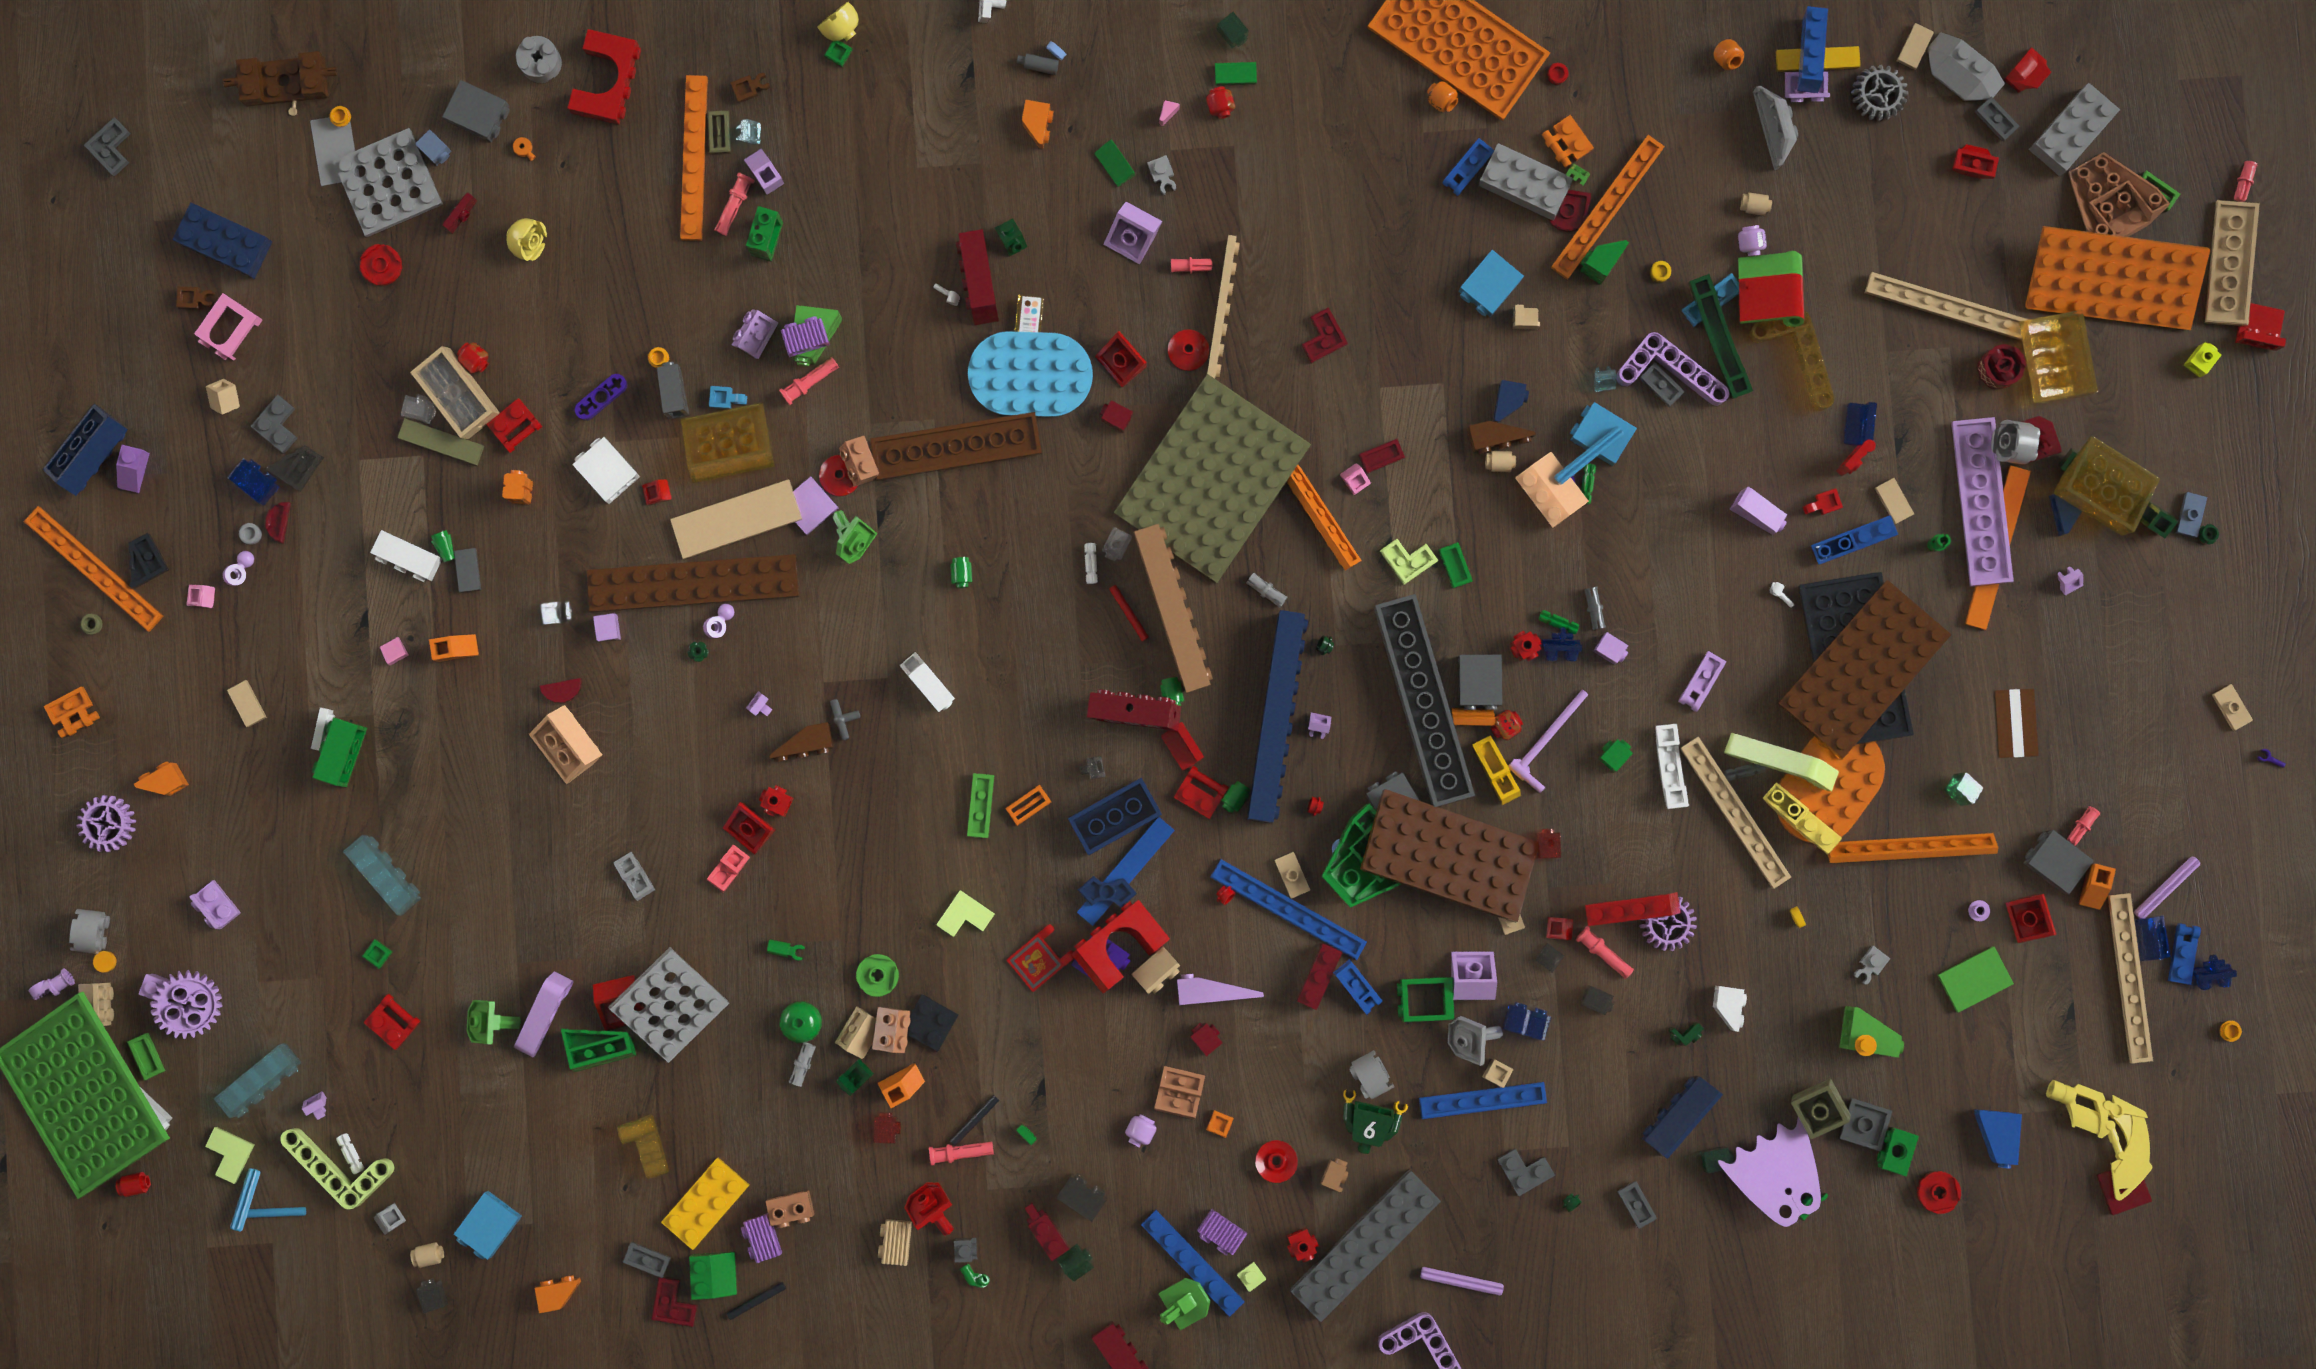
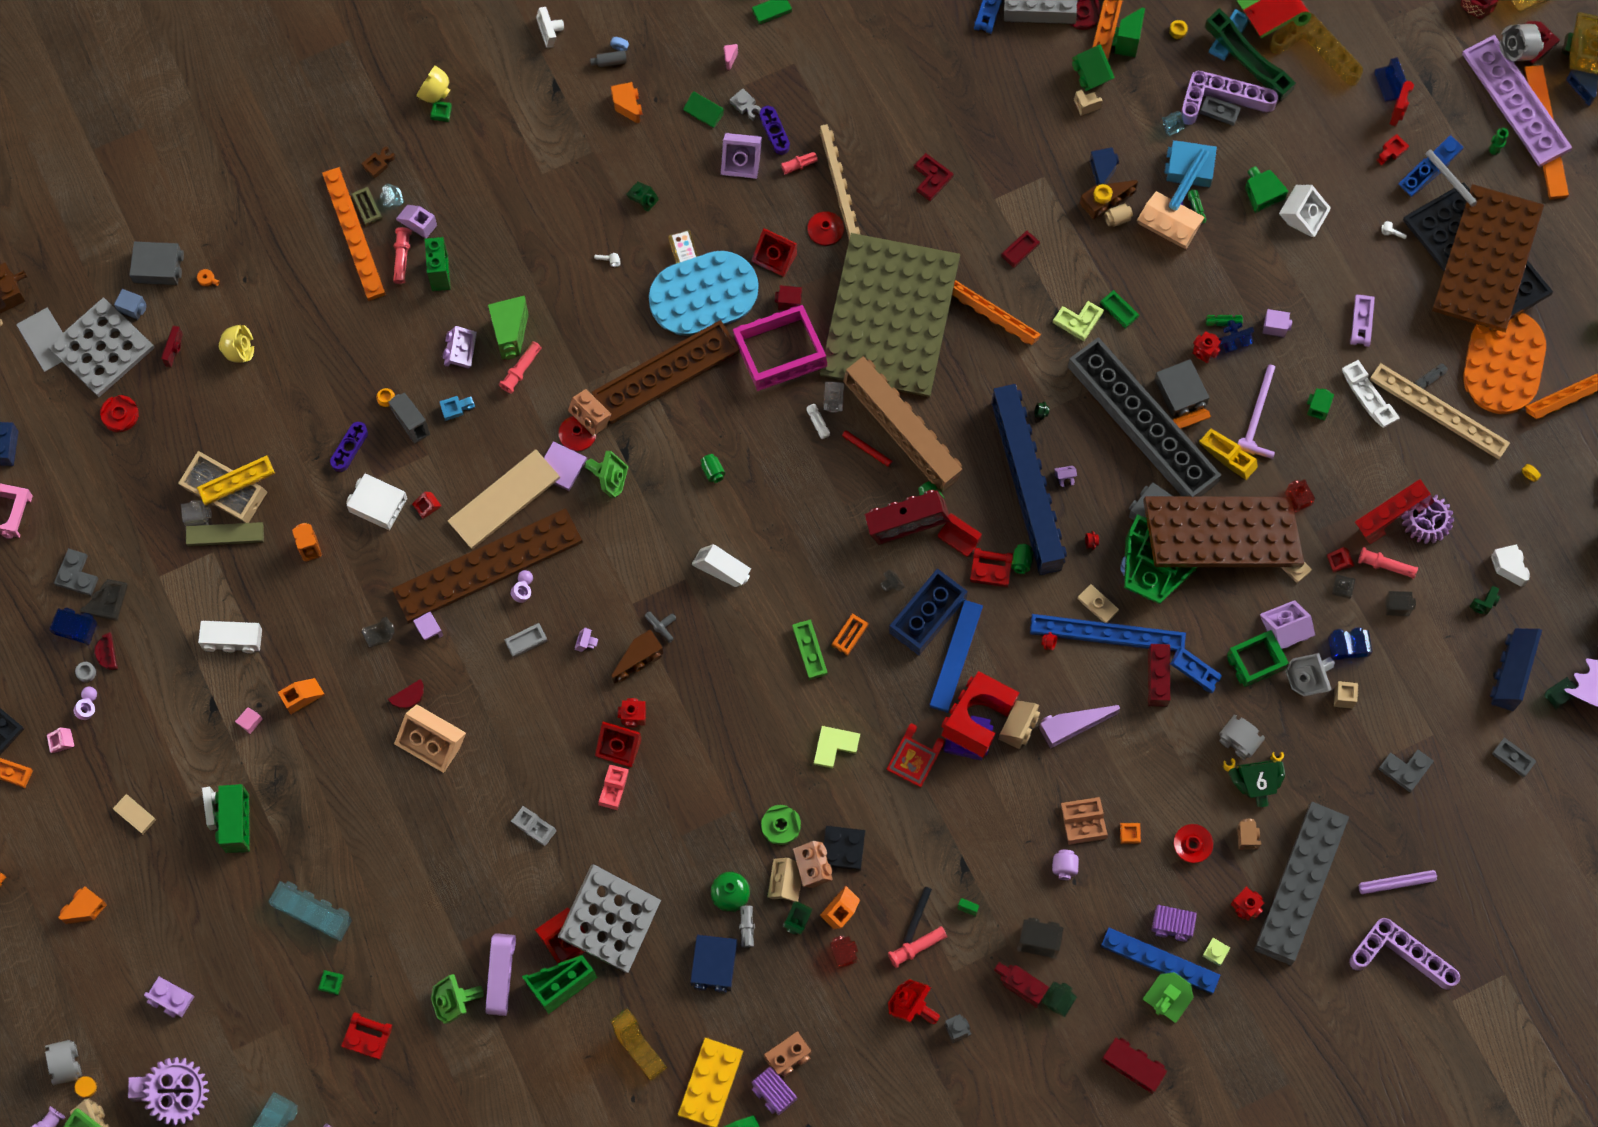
camera: 15 degrees left, 15 degrees down
(108, 816) = (41, 948): lavender gear -> none
(222, 396) = (20, 567): tan panel -> none
(340, 116) = (41, 310): light orange plate -> none
(443, 545) = (259, 615): green cone -> none
(467, 570) = (288, 629): dark grey tile -> none
(468, 395) = (236, 480): none -> yellow tile
(473, 357) = (227, 455): red head -> none
(510, 420) = (278, 494): red plate -> none
(532, 49) = (193, 204): light grey brick -> none
(607, 105) = (265, 218): red arch -> none
(698, 657) = (514, 613): dark green plate -> none
(701, 678) = (526, 640): none -> light grey tile
(727, 442) = (472, 441): clear yellow slope -> none
(754, 1088) = (713, 963): none -> dark blue brick
(783, 949) = (691, 835): green bar -> none
(804, 336) = (505, 323): medium lavender brick -> none
(896, 1242) = (894, 1046): tan brick -> none
(974, 1279) = (976, 1052): green arm -> none
(978, 277) = (629, 234): dark red wedge -> none
(1074, 500) = (786, 371): none -> dark pink window
(1117, 892) = (939, 679): dark blue tile -> none
(1175, 201) = (775, 122): none -> dark purple beam
(1206, 1037) = (1086, 764): dark red brick -> none
(1220, 102) = (769, 33): red head -> none
(1266, 590) = (973, 386): light grey pin -> none
(1355, 478) = (1007, 274): bright pink slope -> none
(1482, 1100) = (1343, 724): blue tile -> none
(1490, 284) = (1048, 86): dark azure brick -> none
(1492, 434) = (1103, 193): none -> yellow tile
(1507, 725) = (1221, 415): red head -> none
(1544, 285) = (1092, 68): none -> green slope
(1571, 1202) = (1458, 777): dark green plate -> none
(1595, 608) = (1248, 297): dark grey pin -> none
(1666, 493) = (1264, 189): none -> green torso
(1699, 534) = (1305, 209): none -> white slope
(1759, 511) = (1343, 172): lavender slope -> none
(1783, 760) = (1460, 347): yellowish green beam -> none
(1801, 818) = (1495, 392): light yellow slope -> none
(1867, 565) = (1451, 178): none -> light grey bar
(1894, 501) = (1445, 126): tan tile -> none

